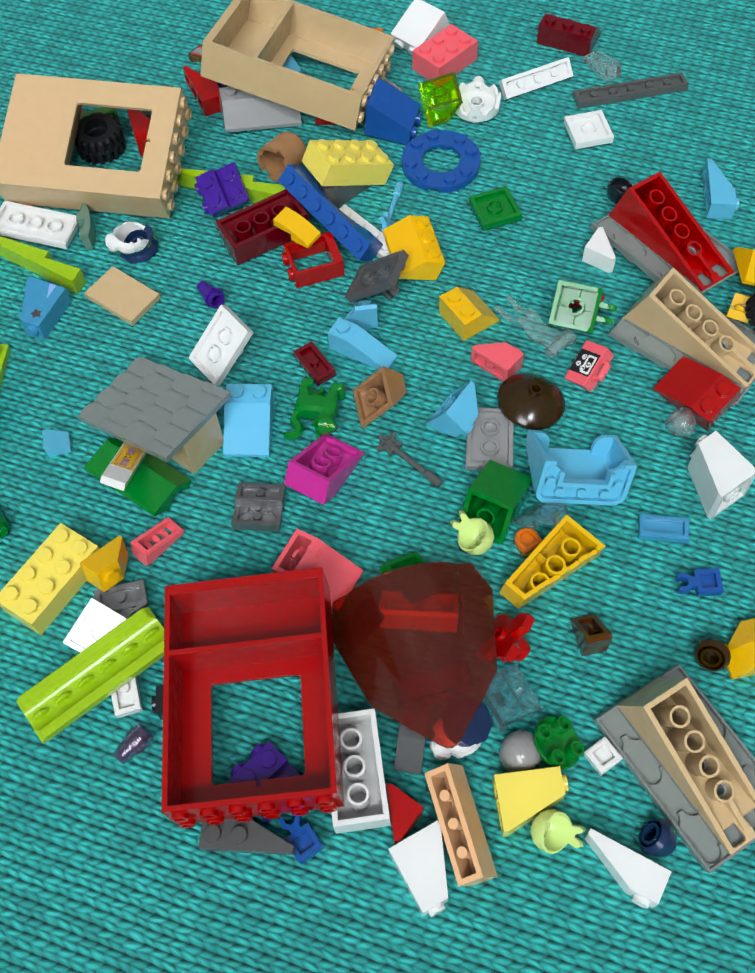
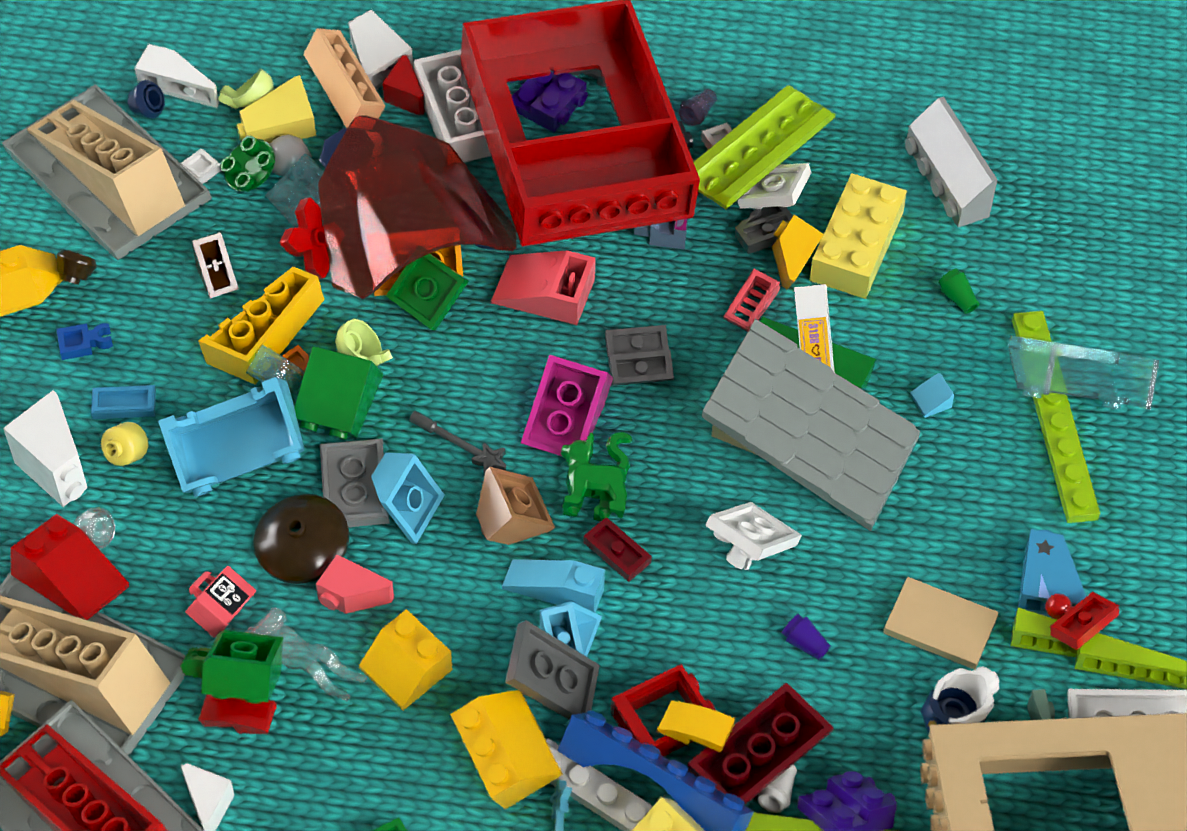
camera: 165 degrees right, 5 degrees down
(37, 259) = (1081, 622): none -> red plate
(248, 420) = (686, 459): medium azure slope -> none
(661, 479) = (124, 444): none -> light yellow head

